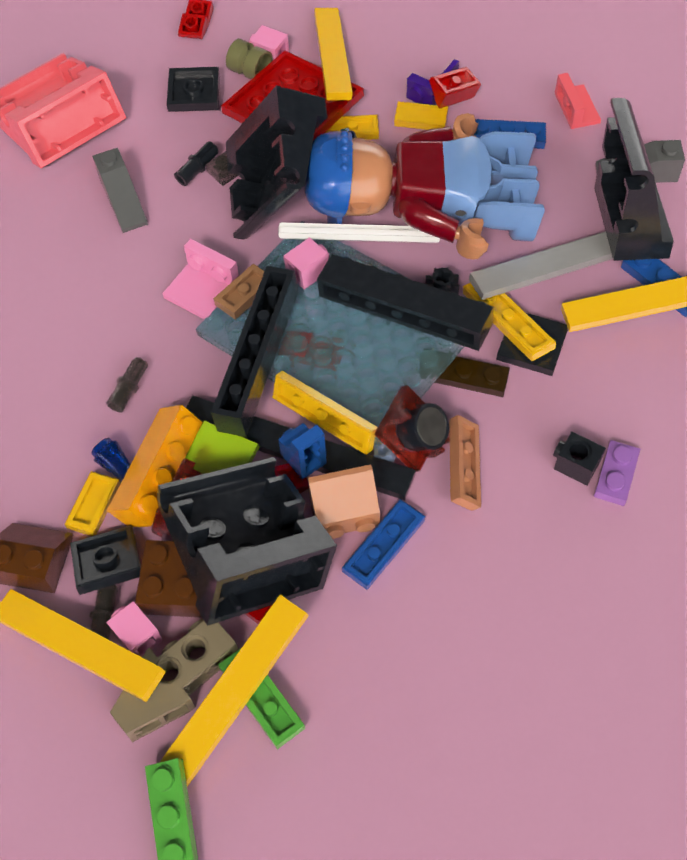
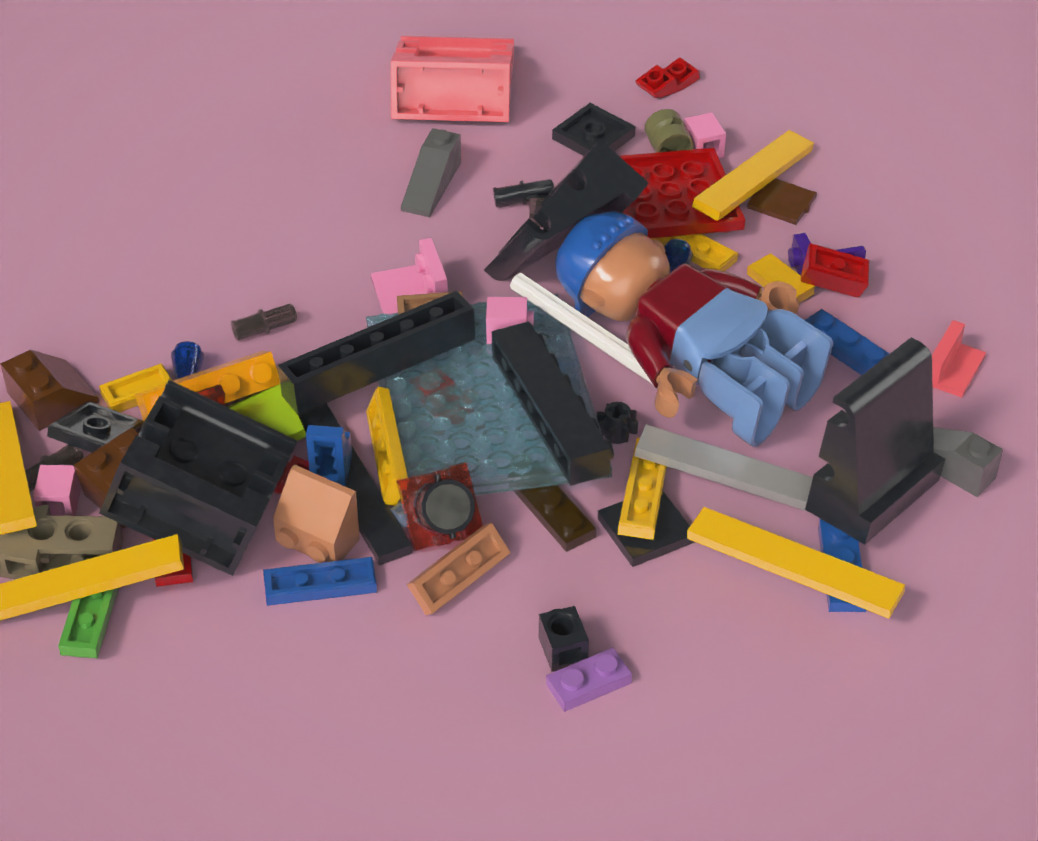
camera: 40 degrees right, 15 degrees down
(363, 60) = (782, 201): none -> reddish brown piece

